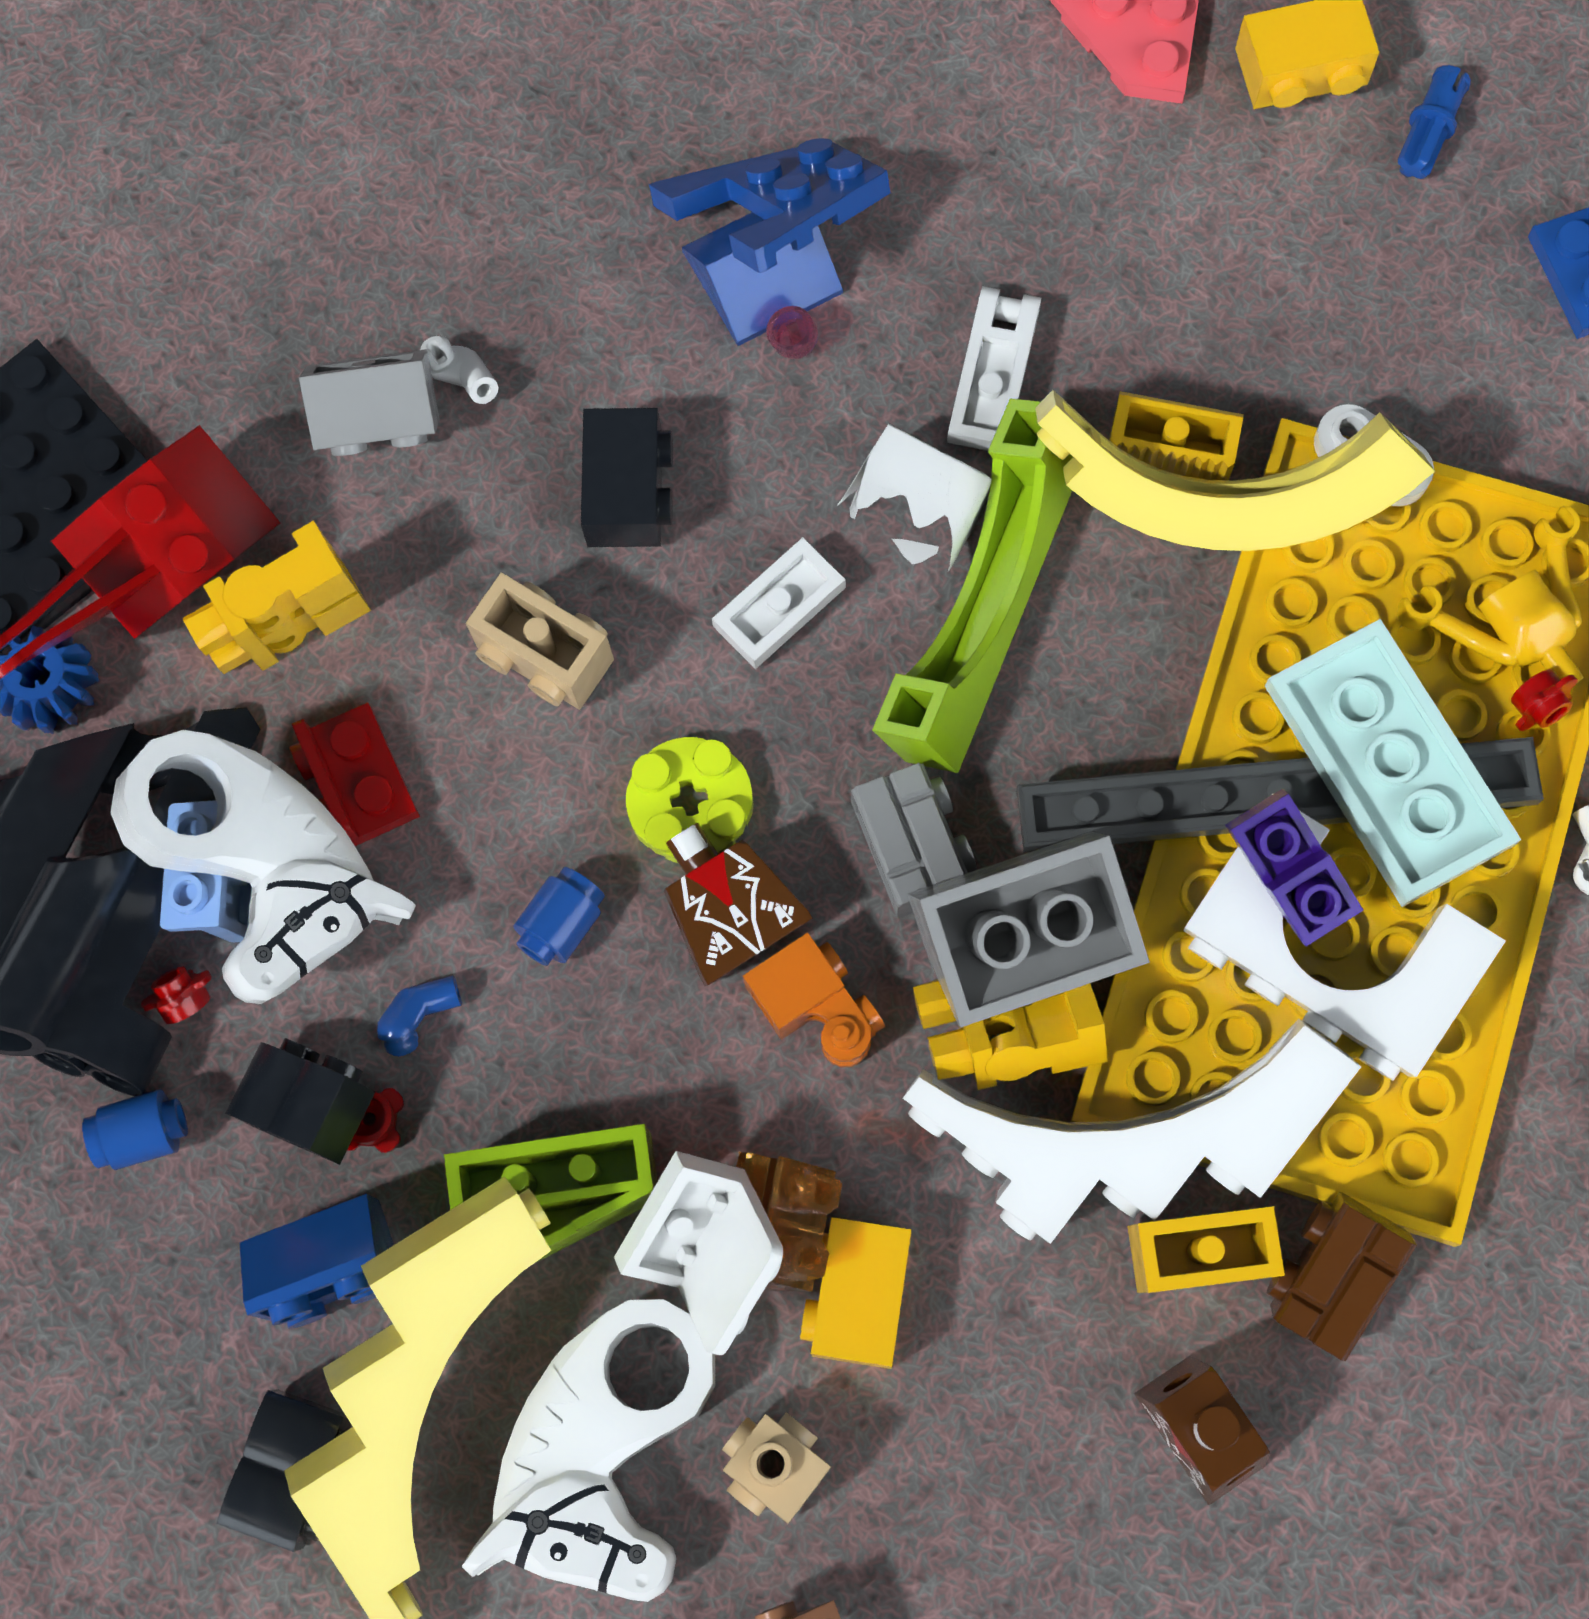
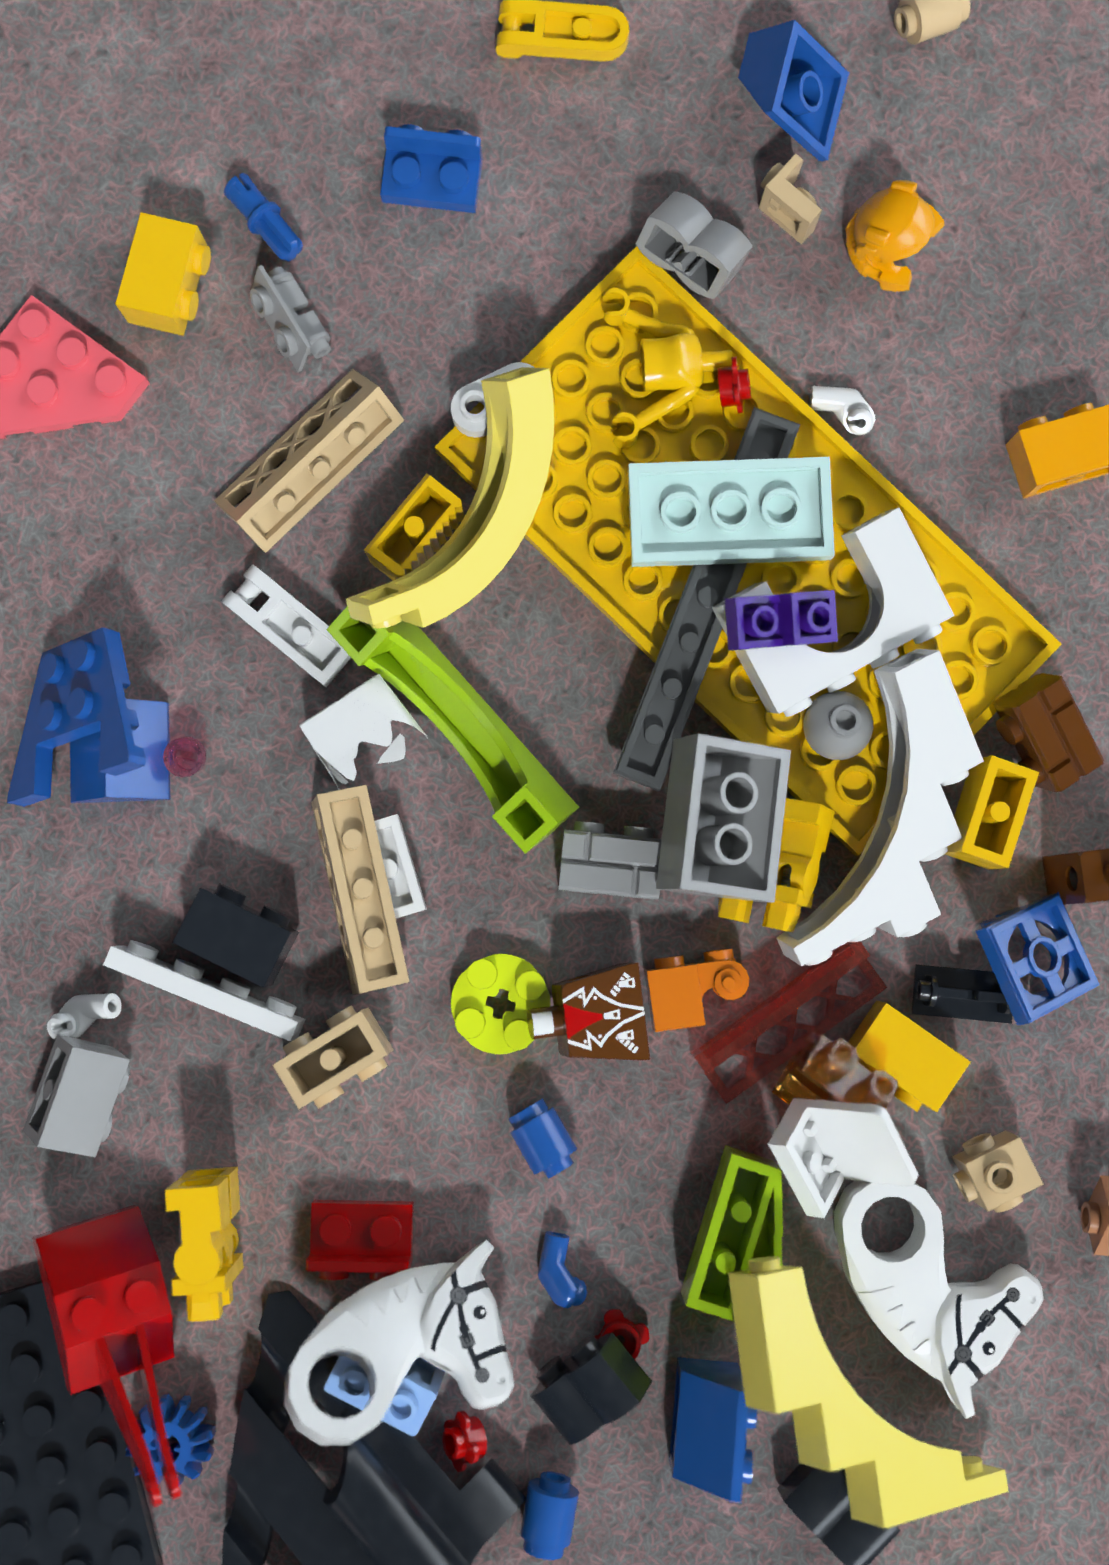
camera: 70 degrees left, 10 degrees up
(547, 454) = (187, 982): none -> white plate
(740, 578) = (359, 889): none -> tan fence
(845, 1113) = (780, 1005): none -> clear red fence
(971, 1334) = (959, 994): none -> black hinge
(1122, 1392) = (1078, 971): none -> blue piece
(1191, 301) = (312, 462): none -> tan fence
(1212, 1018) = (838, 725): none -> light grey brick
(1349, 180) = (276, 299): none -> light grey hinge

